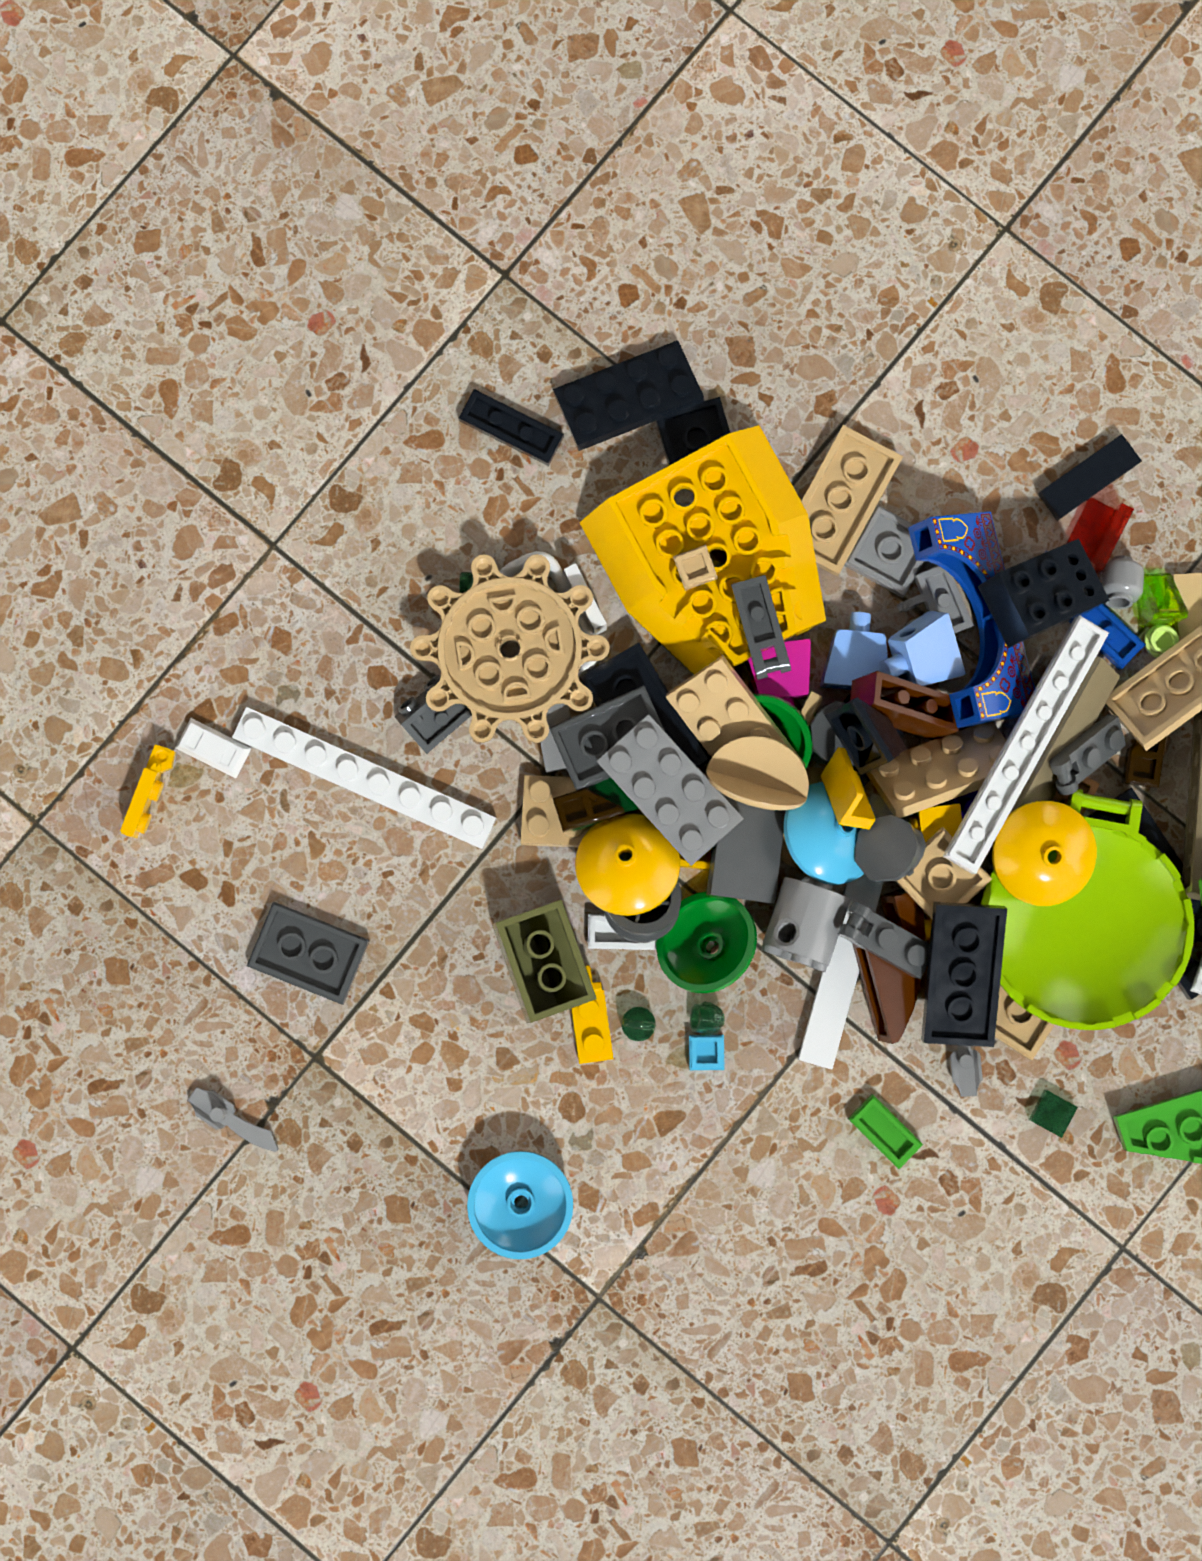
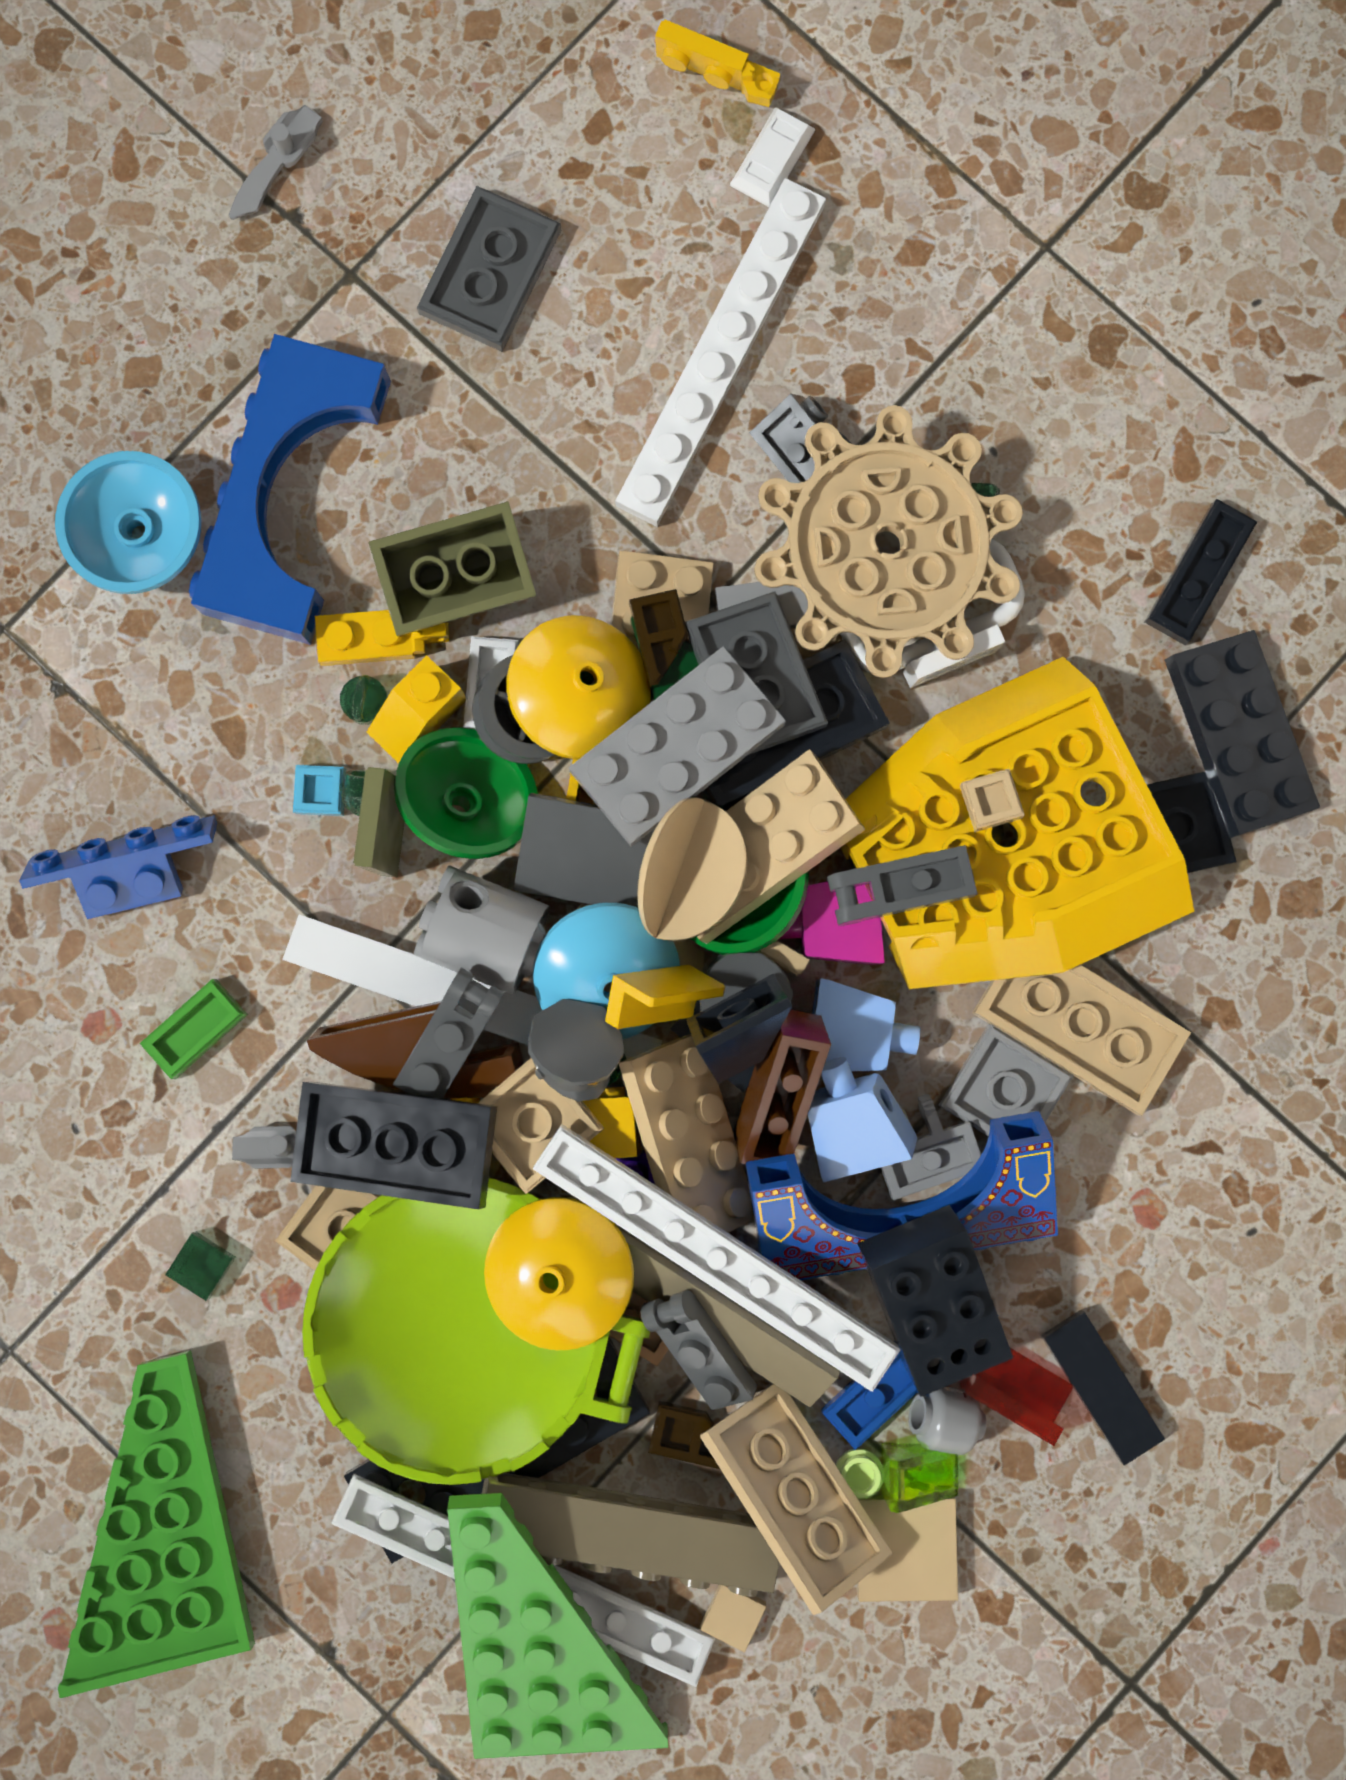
camera: 90 degrees right, 0 degrees up
(414, 1088) = (297, 396): none -> blue arch
(646, 985) = (415, 708): none -> yellow slope
(735, 1002) = (379, 825): none -> olive tile
(773, 1191) = (123, 870): none -> blue bracket

